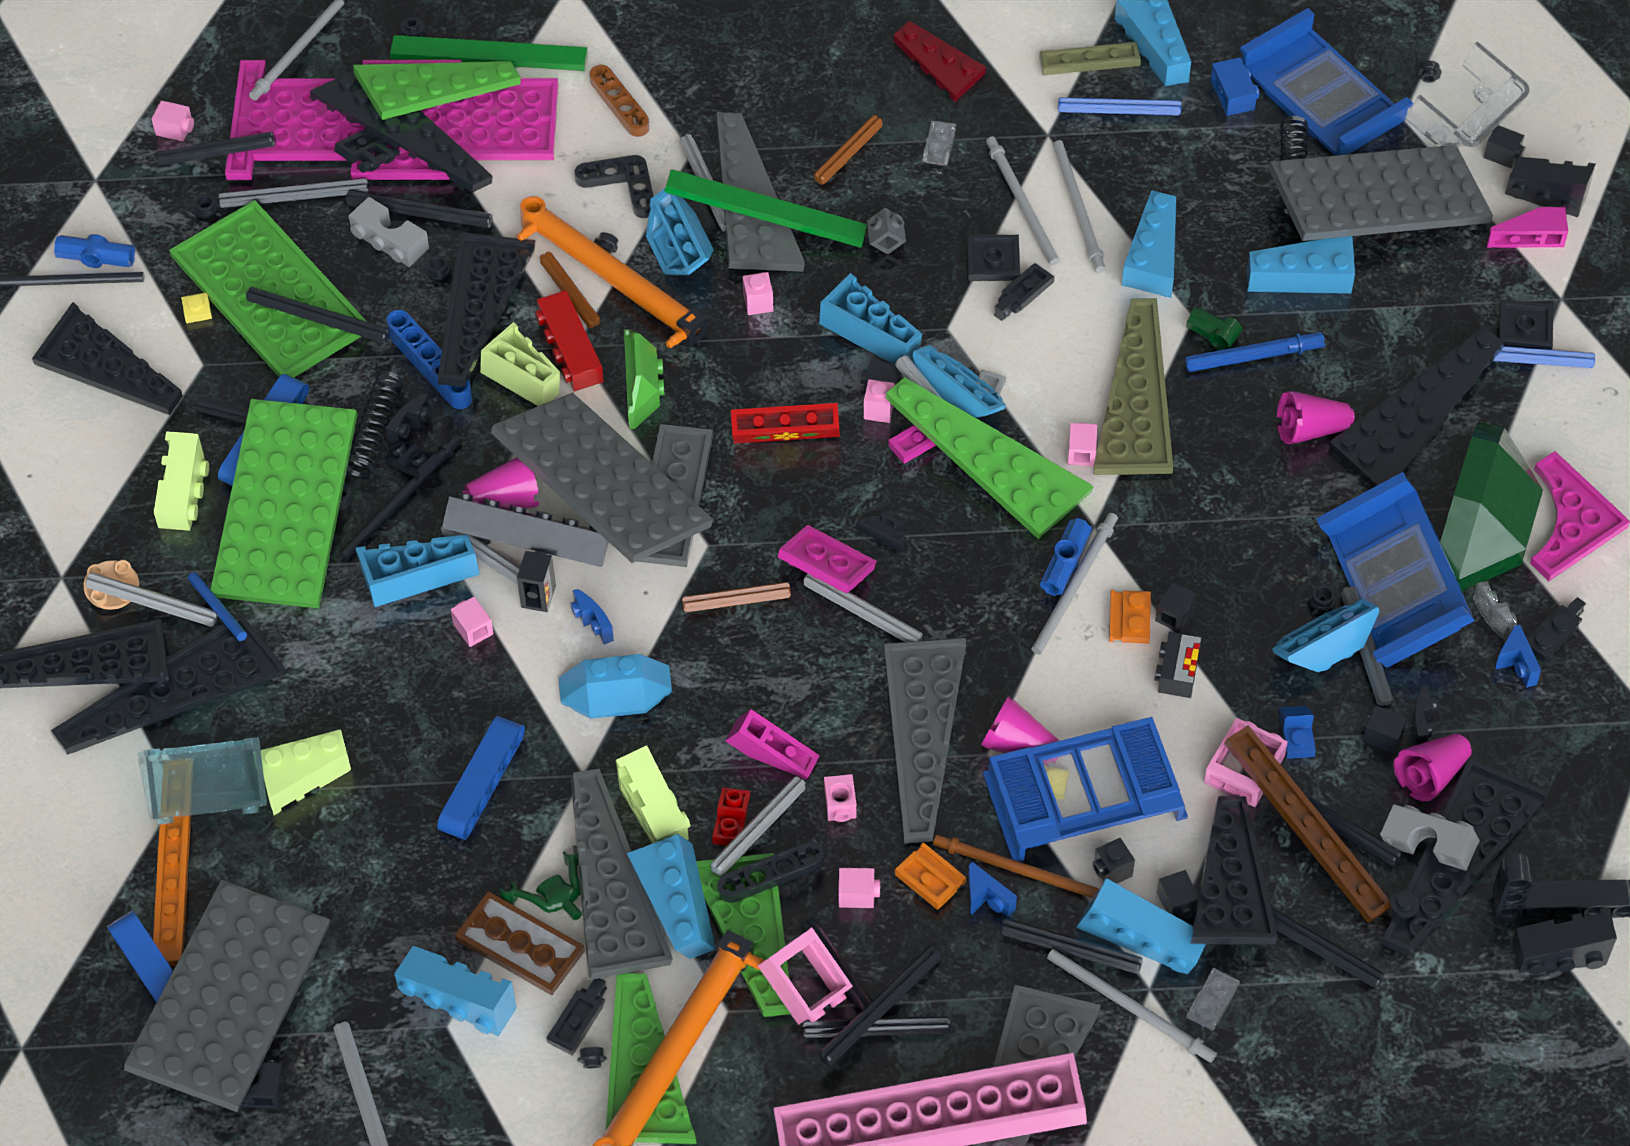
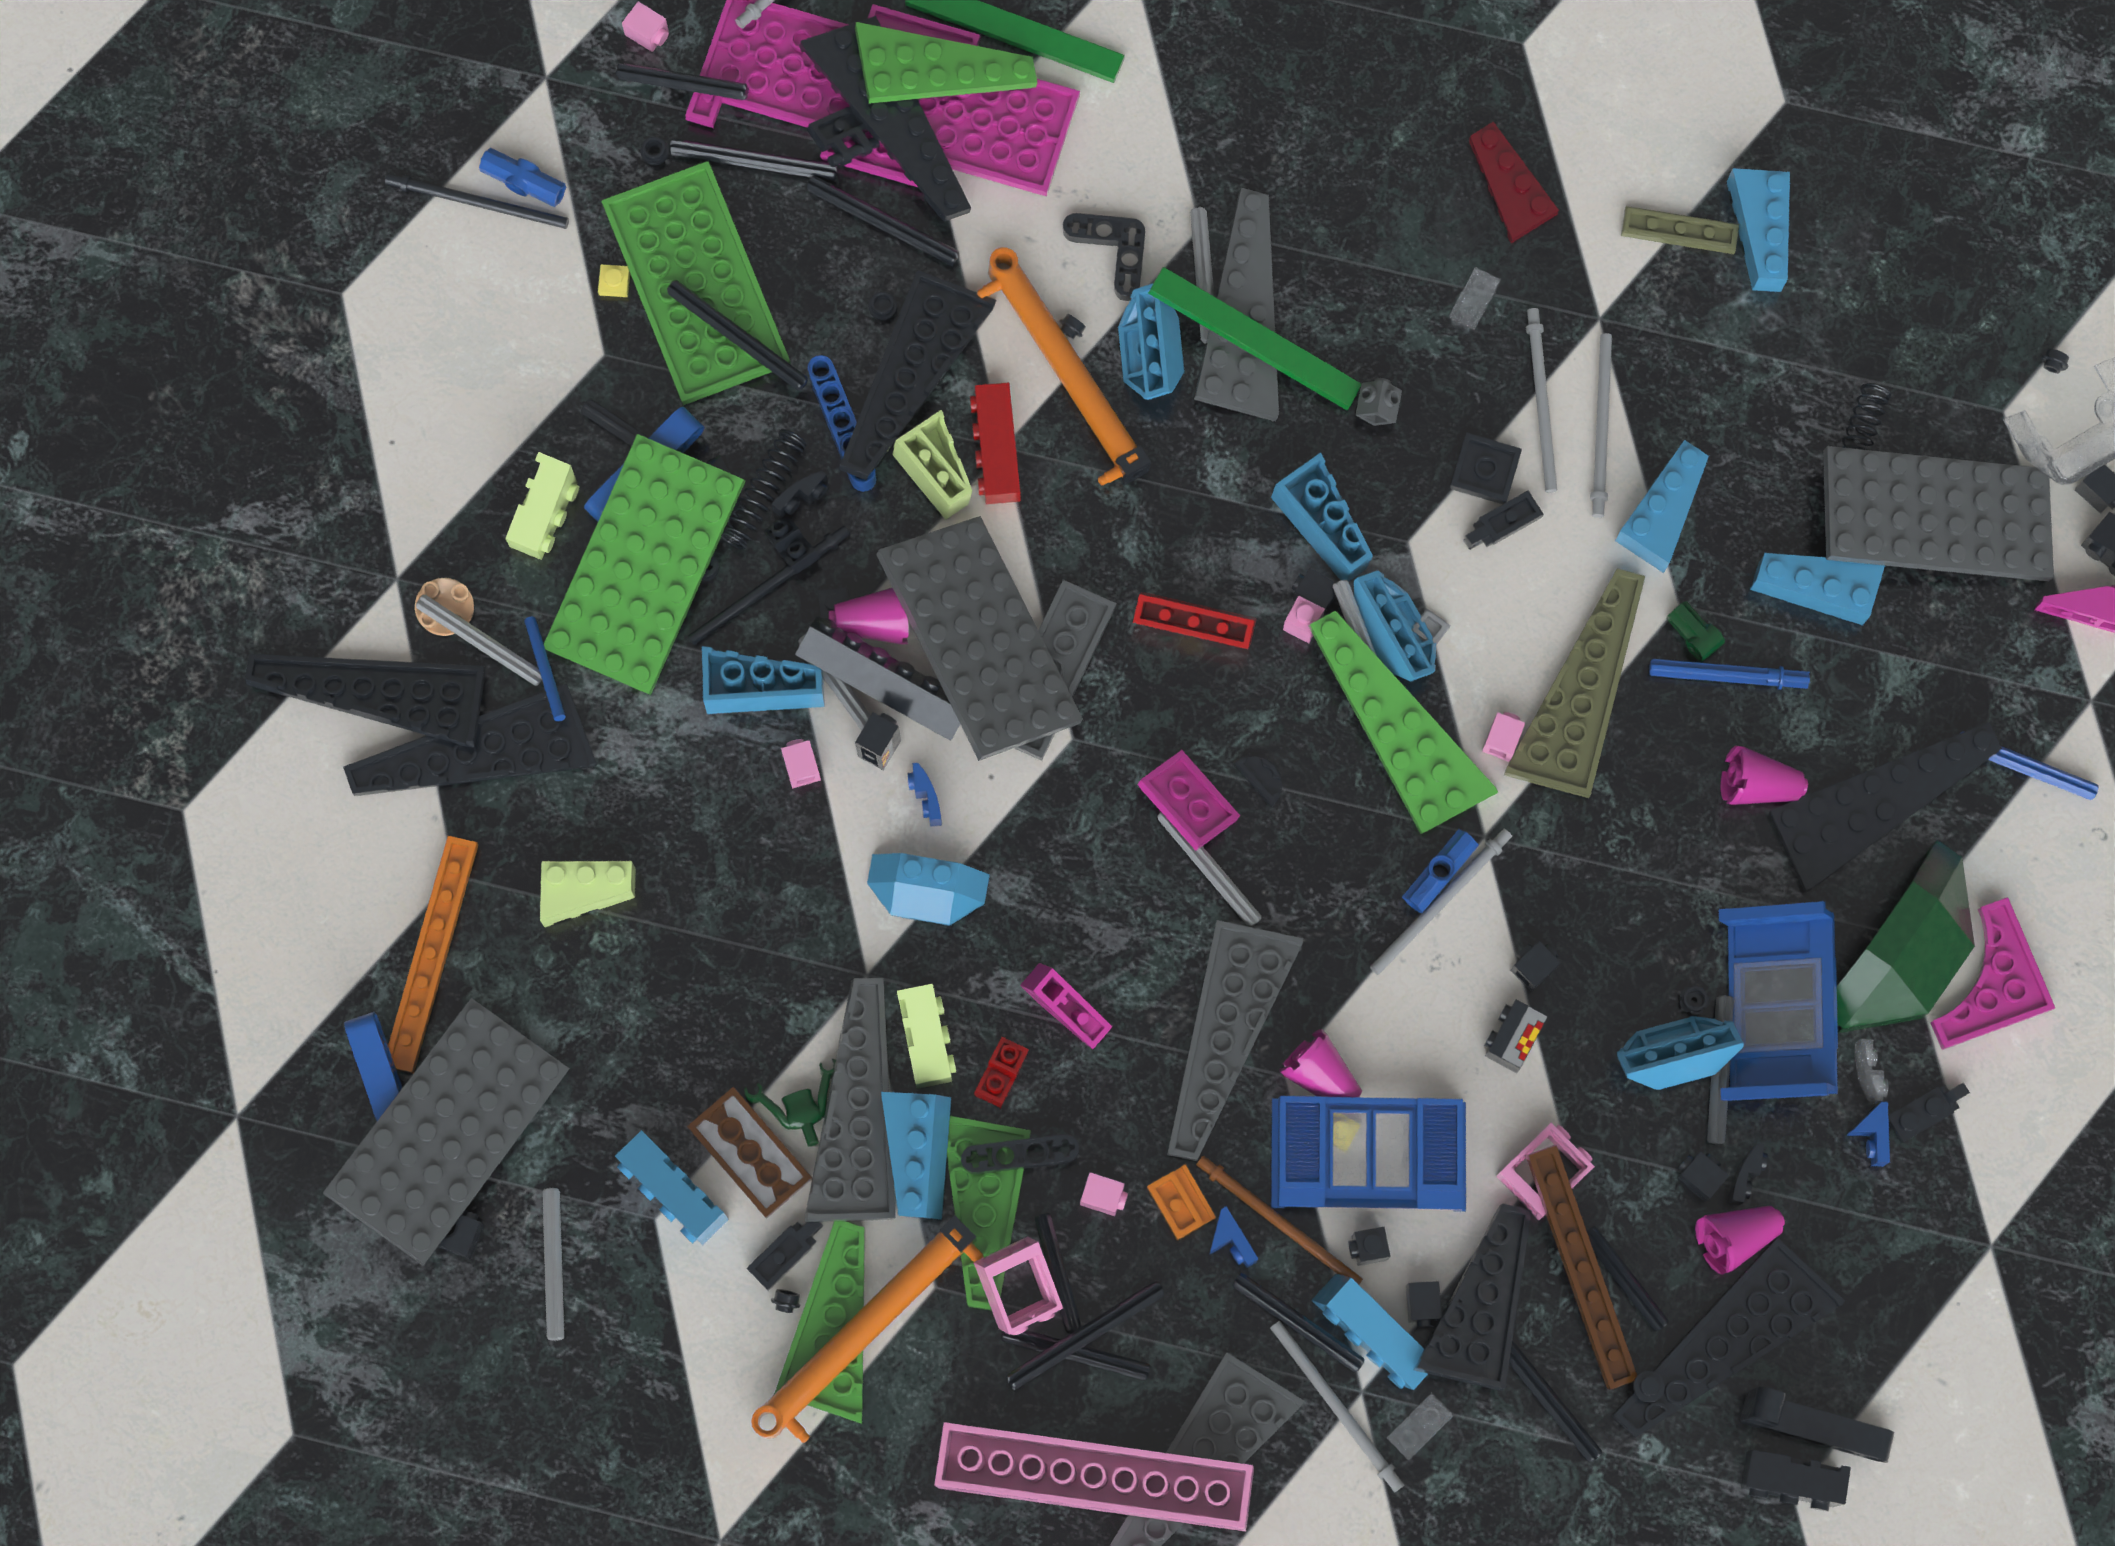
camera: 15 degrees right, 20 degrees up
(99, 359) = (491, 315): black wing -> none
(203, 779) = (479, 874): clear light blue windscreen -> none
(403, 244) = (853, 264): light grey arch -> none
(481, 777) = (761, 951): blue beam -> none
(564, 282) = (1016, 374): dark orange axle -> none
(619, 100) = (1141, 136): dark orange beam -> none
(641, 377) = (1060, 514): bright green wedge -> none
(736, 597) = (1082, 813): axle -> none
(758, 293) = (1215, 442): bright pink brick -> none
(758, 826) = (1024, 1094): light grey axle -> none
(840, 787) = (1120, 1074): bright pink brick -> none
(848, 149) = (1372, 277): dark orange axle -> none
(910, 444) = (1318, 681): dark pink plate -> none
(1119, 106) = (1691, 305): axle -> none
(1130, 616) = (1485, 959): orange plate -> none
(1234, 86) = (1827, 318): blue brick -> none
(1297, 730) = (1612, 1147): blue slope -> none
(1320, 86) = (1925, 346): blue piece -> none
(1409, 826) = (1722, 1338): light grey arch -> none
(1526, 324) = (2037, 727): black plate -> none

